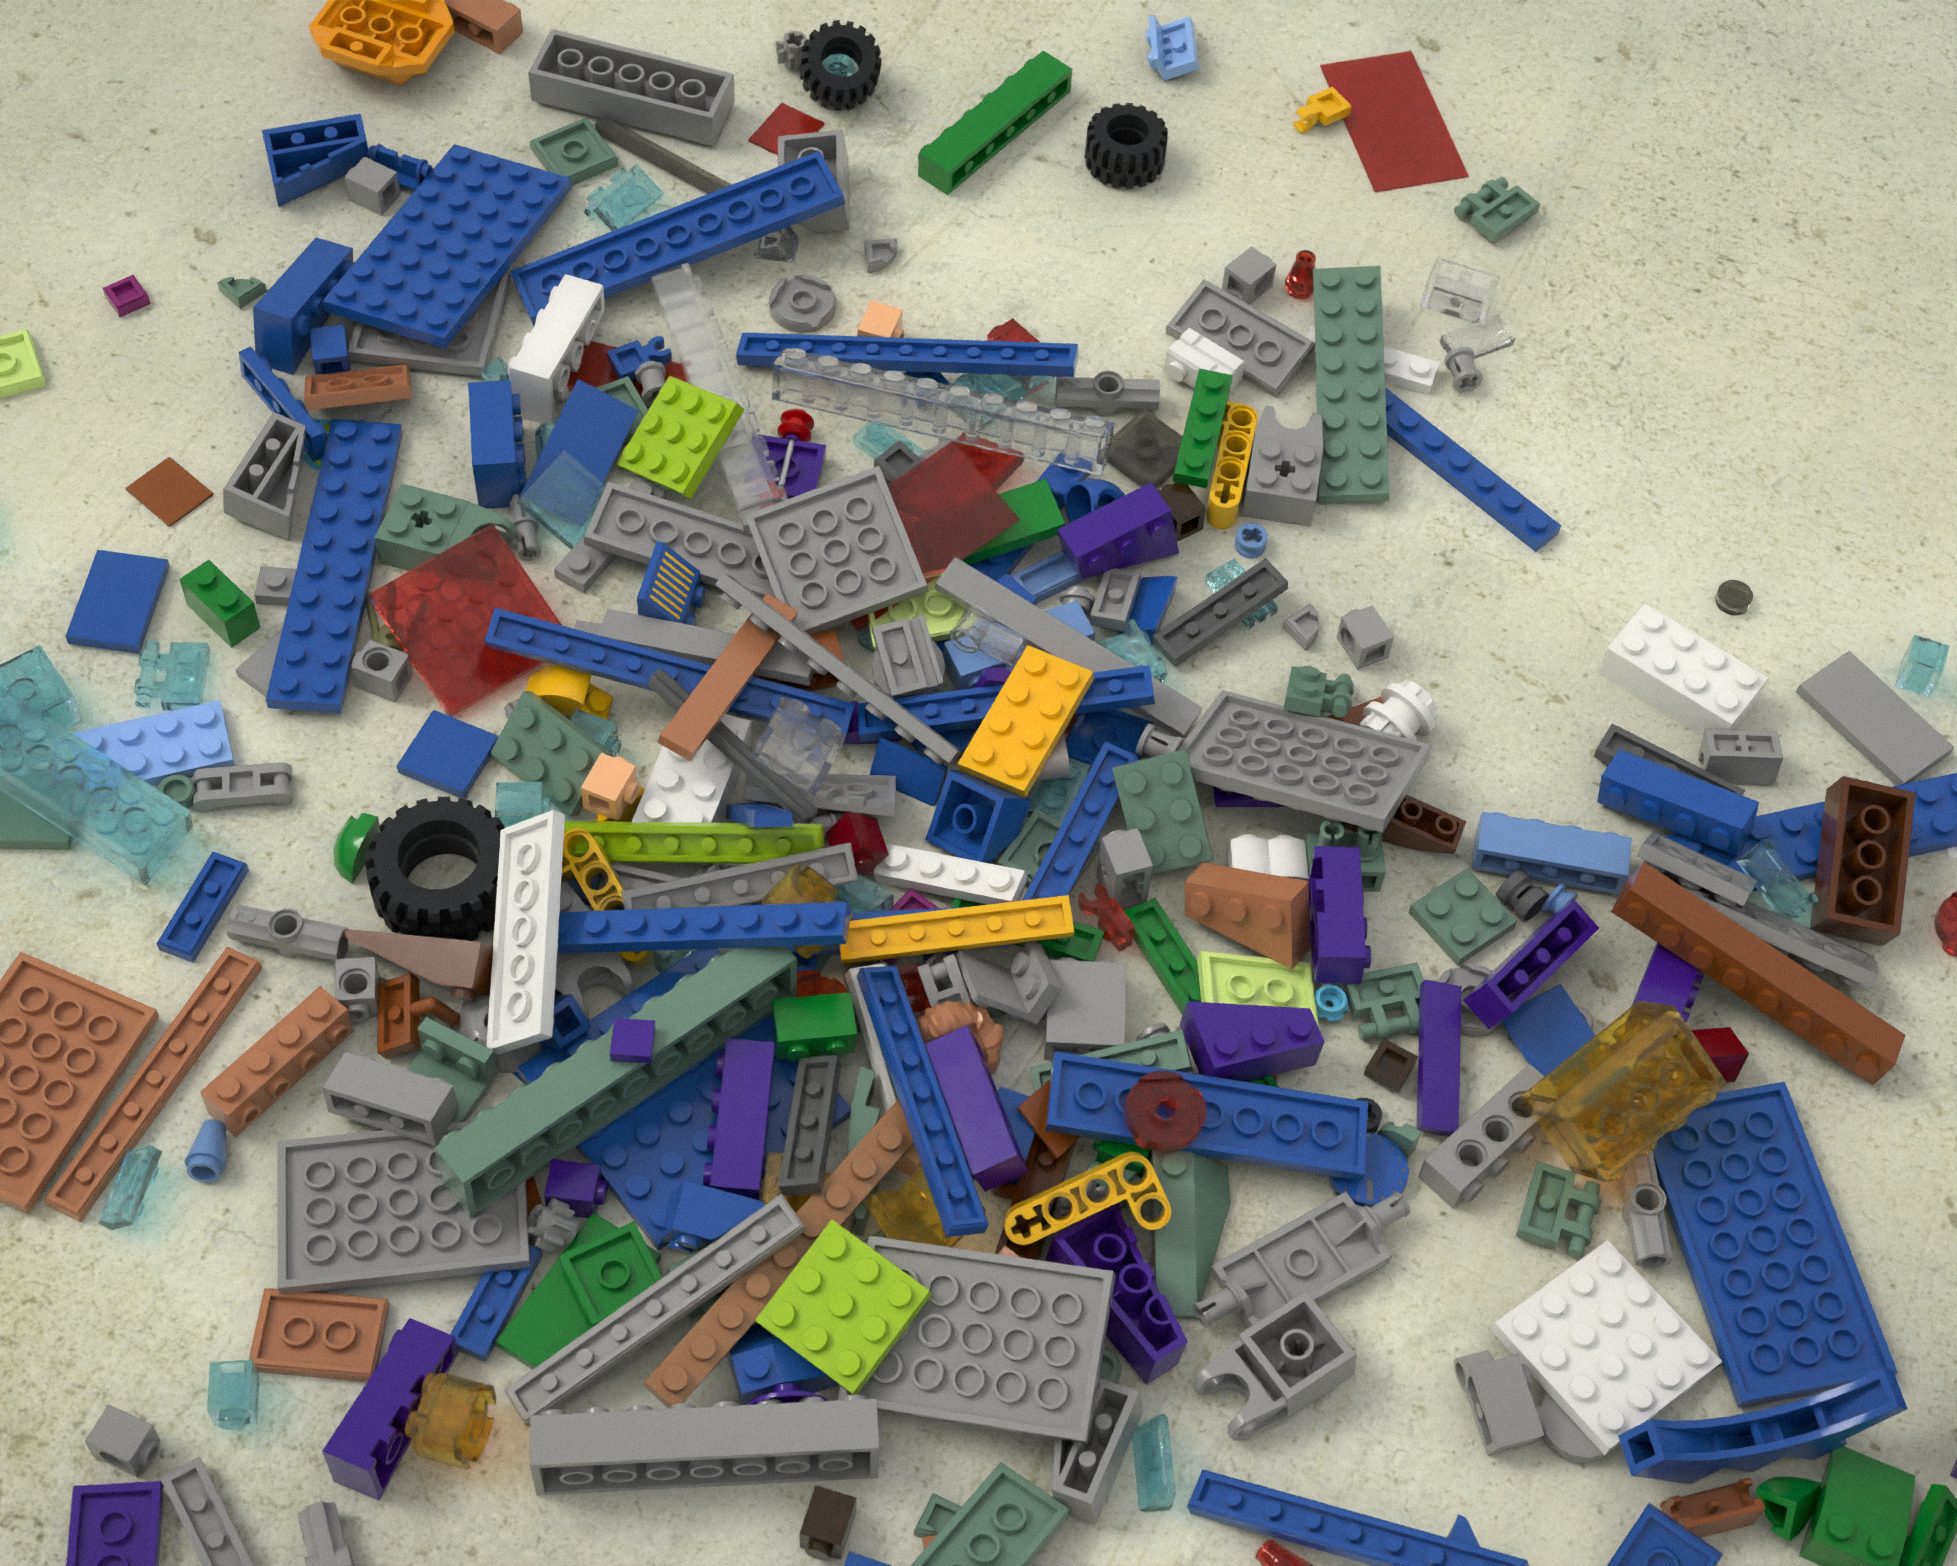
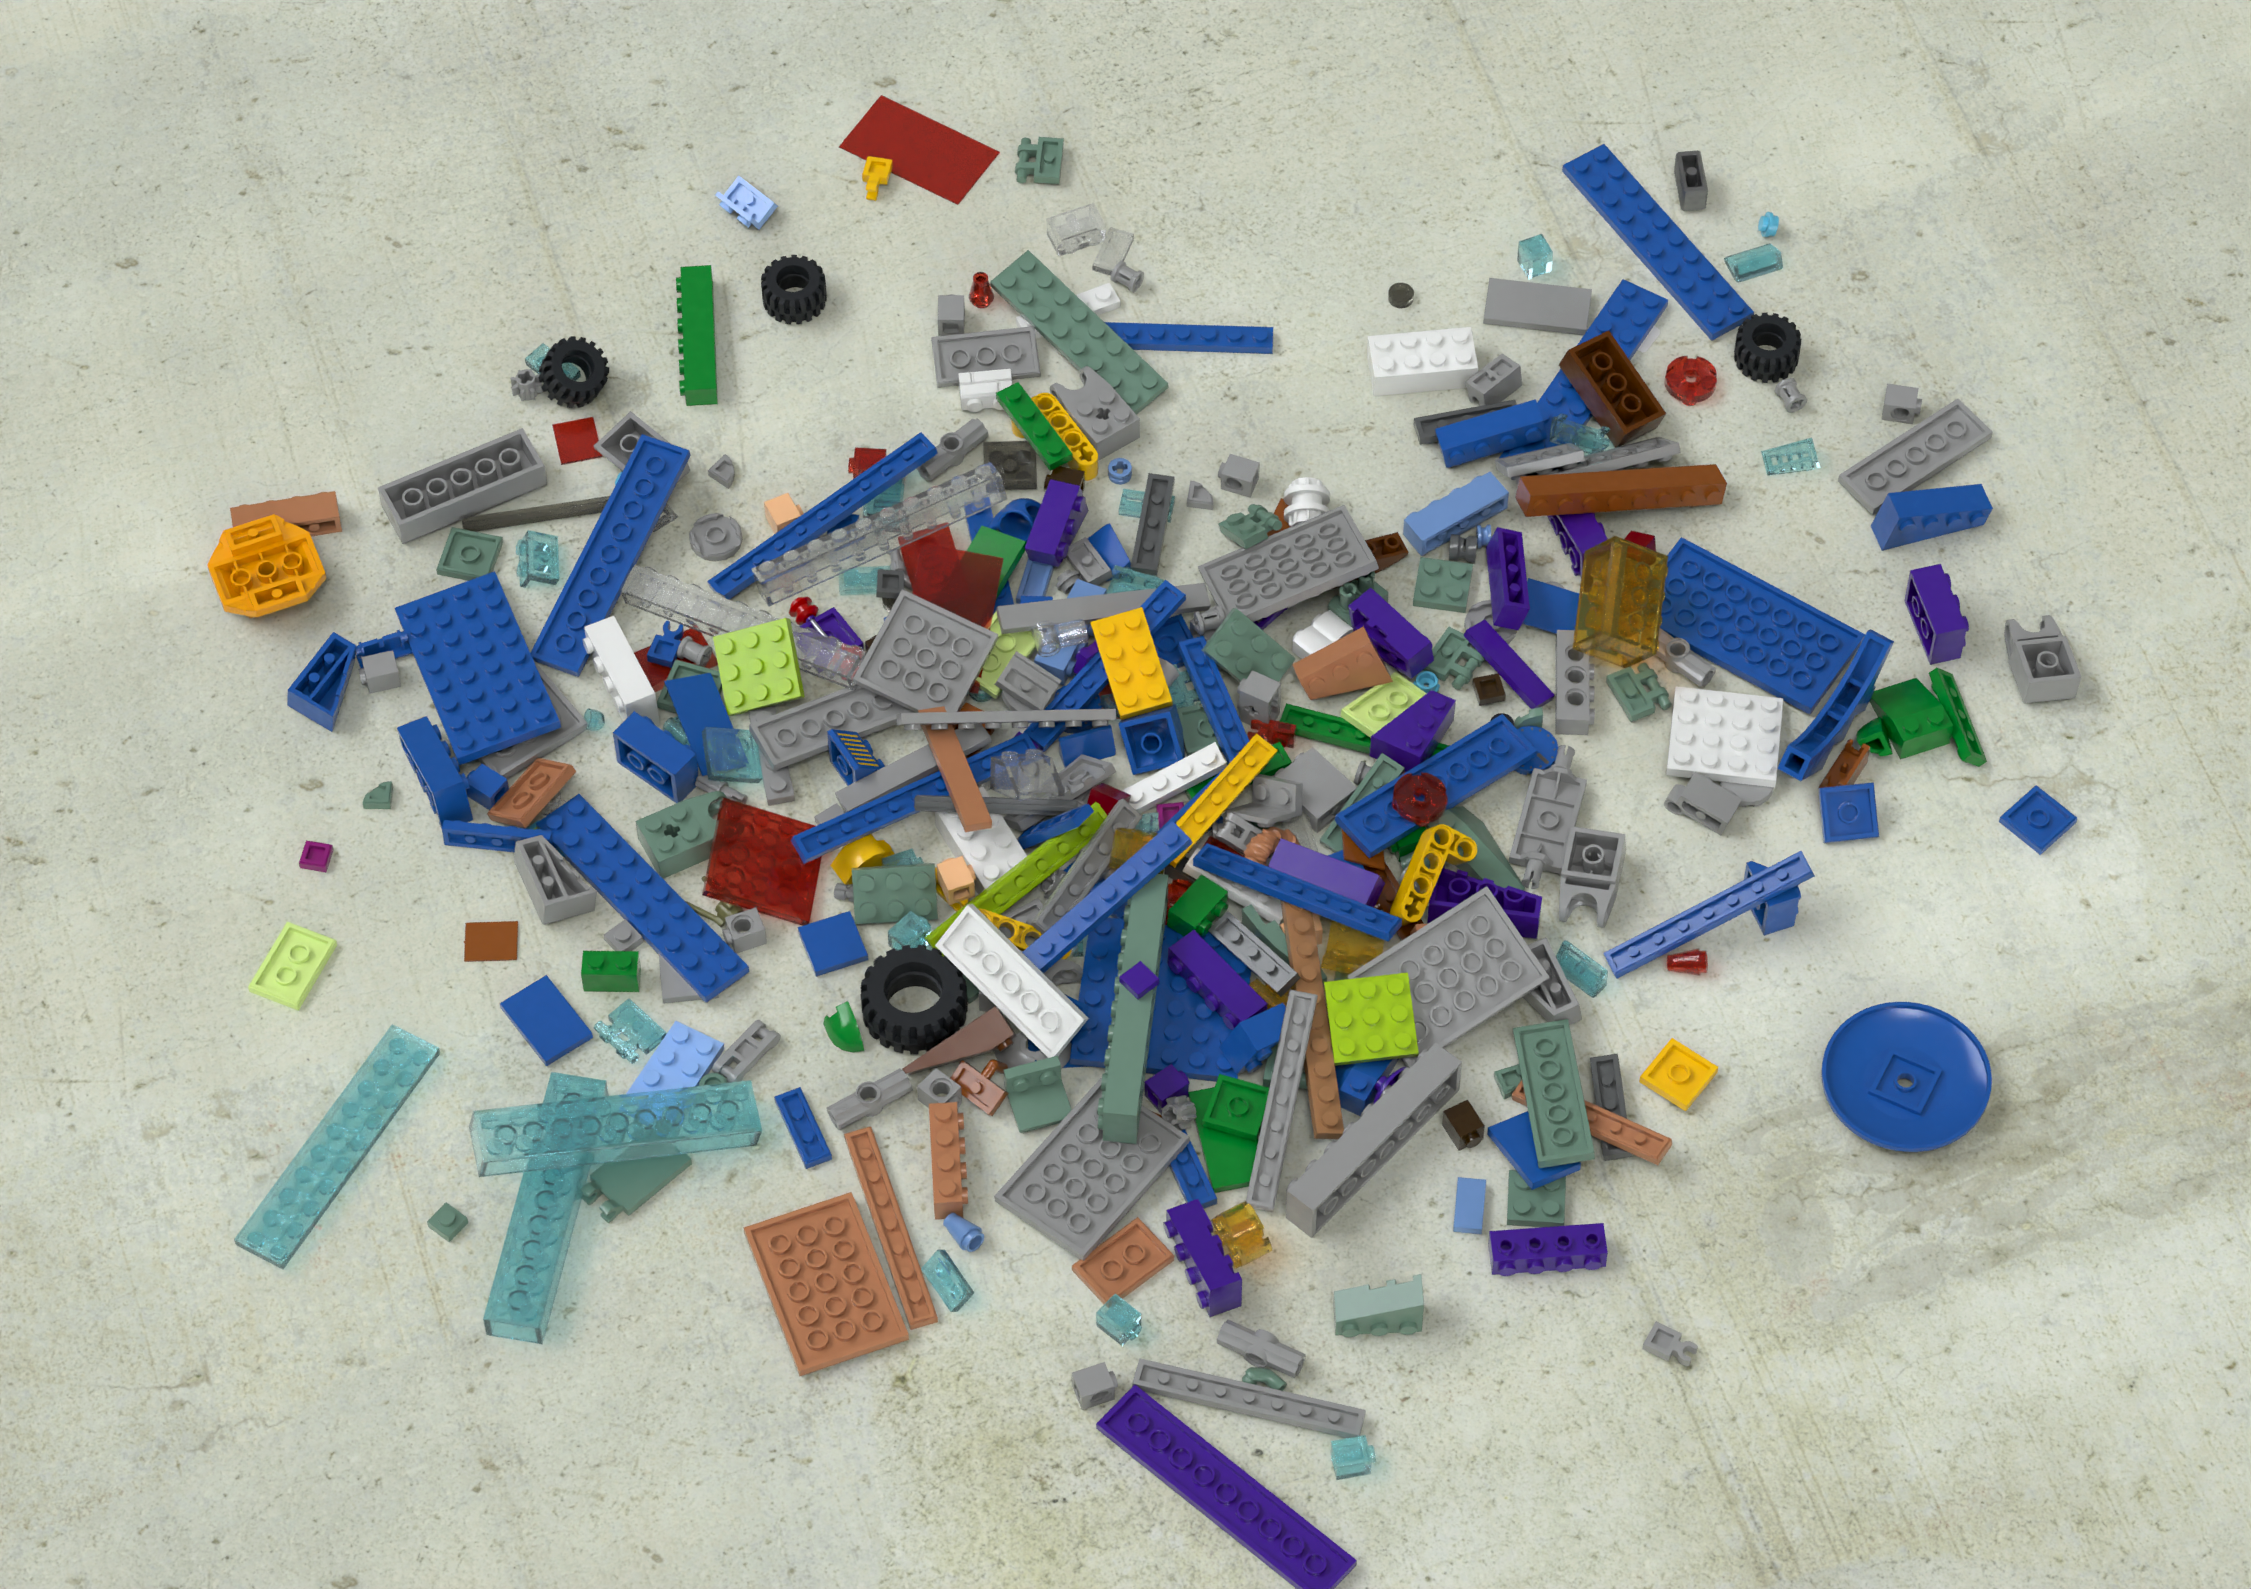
camera: 40 degrees left, 0 degrees up
(390, 1098) = (1030, 1124): light grey brick -> none

